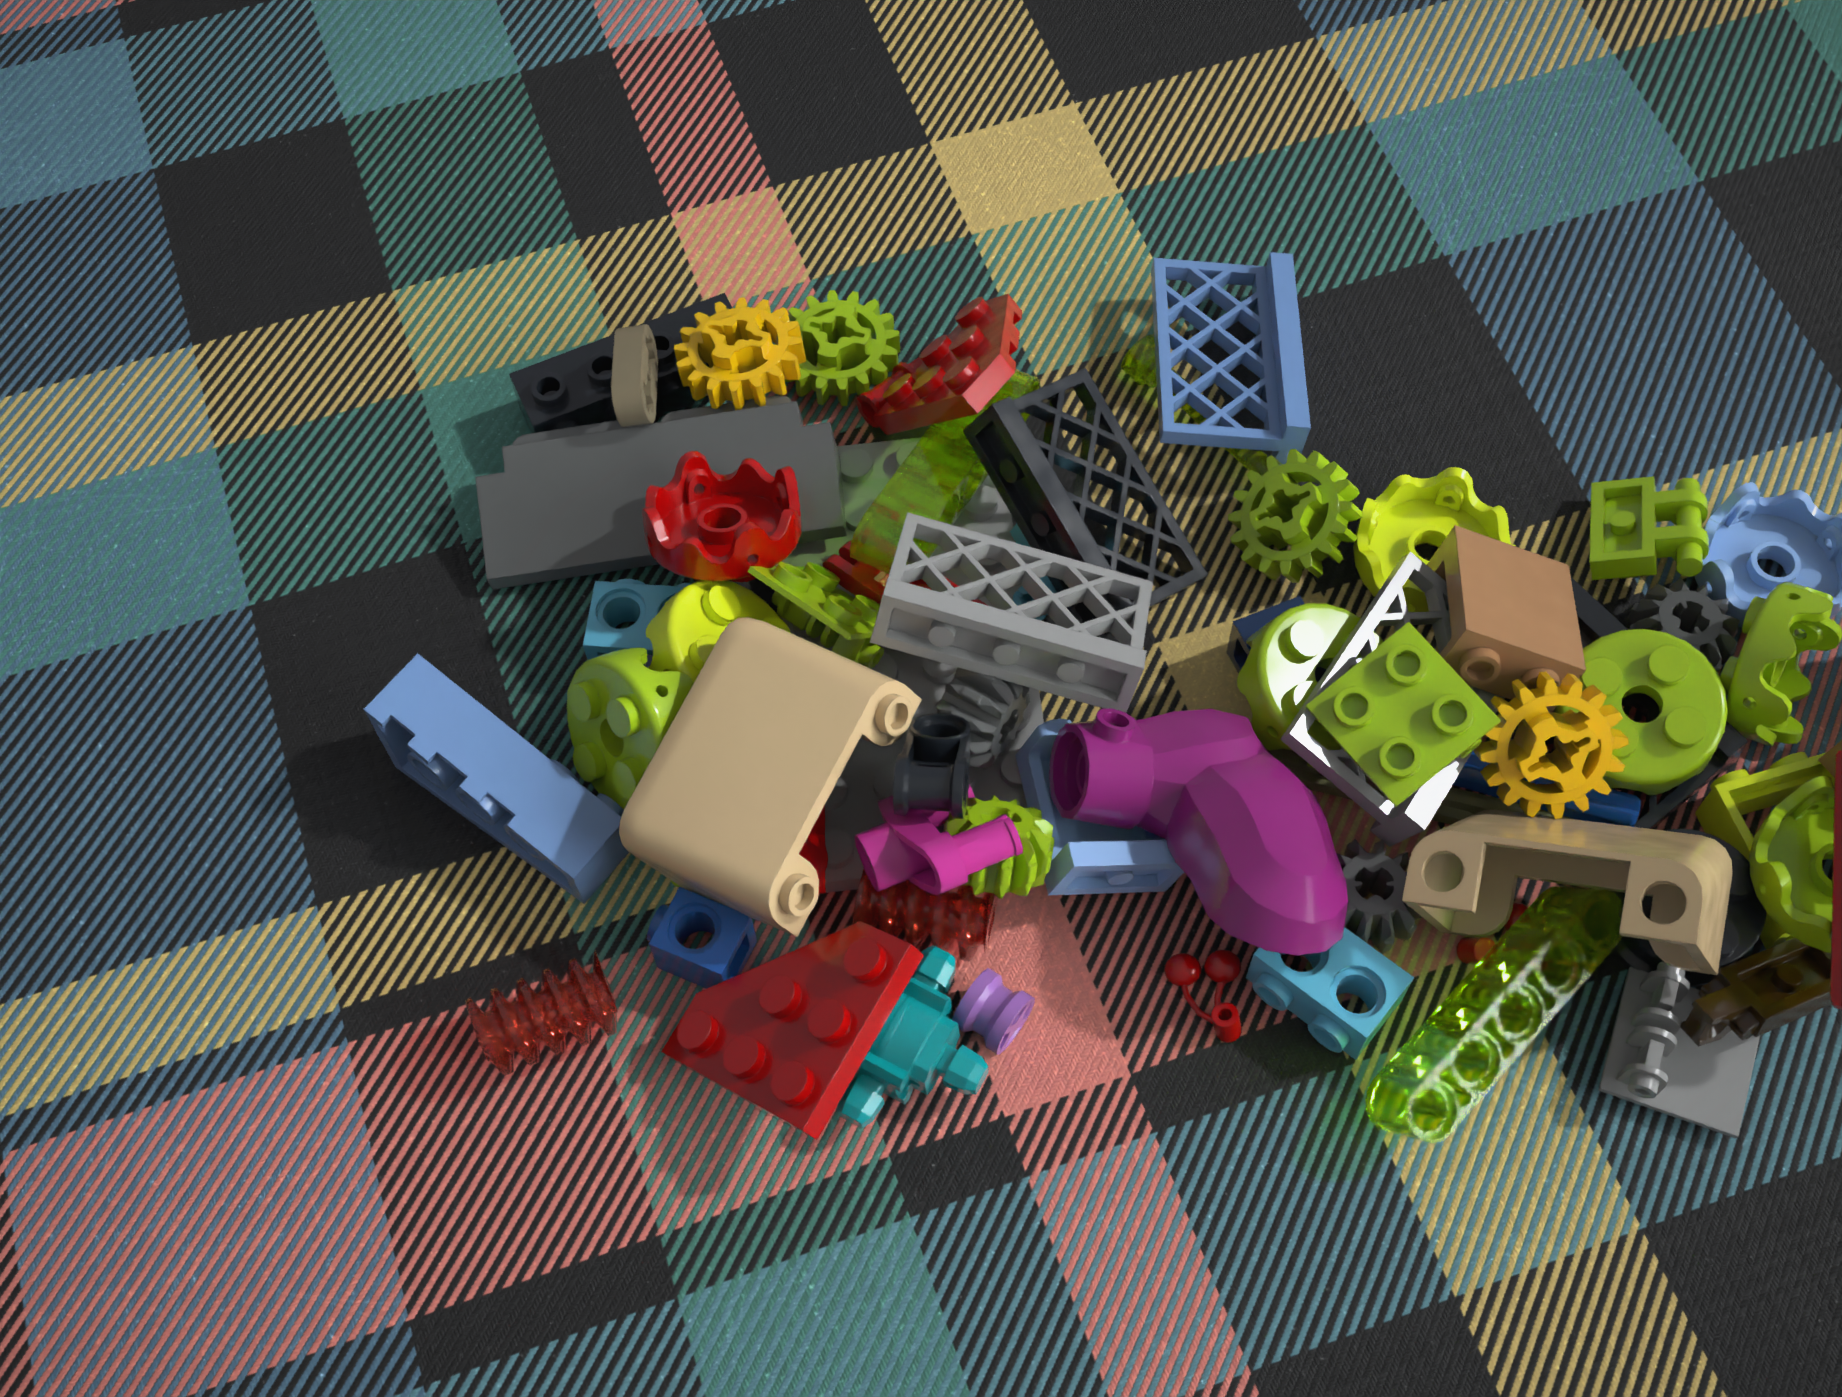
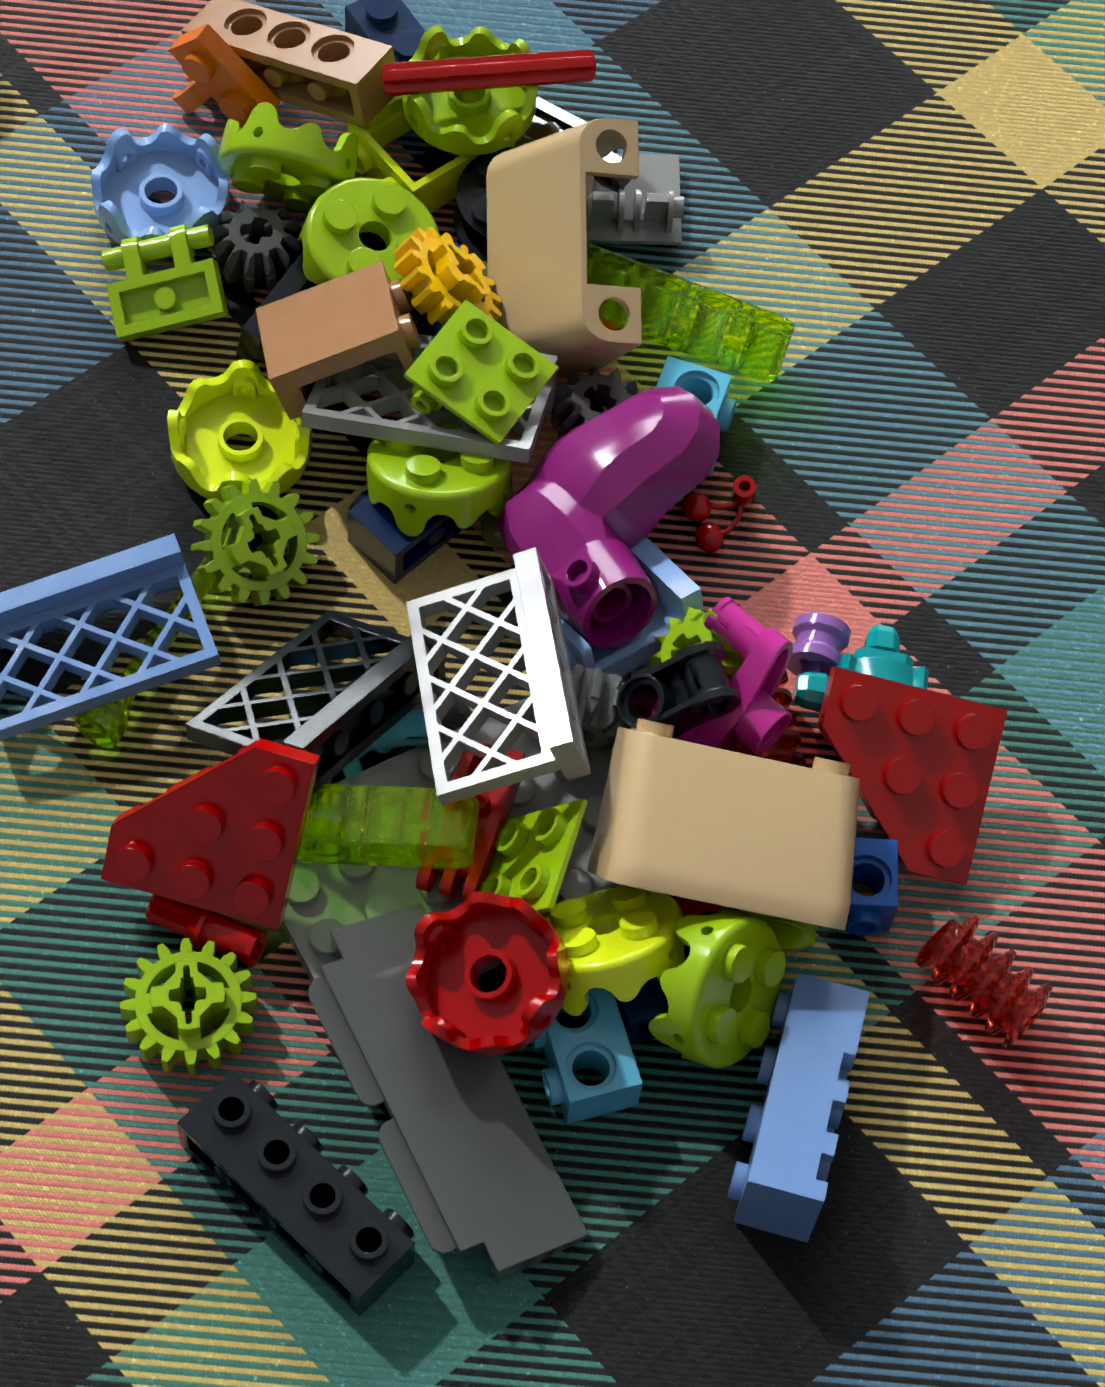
camera: 120 degrees left, 0 degrees up
(634, 376) = (345, 1132): dark tan beam -> none
(740, 354) = (249, 1047): yellow gear -> none

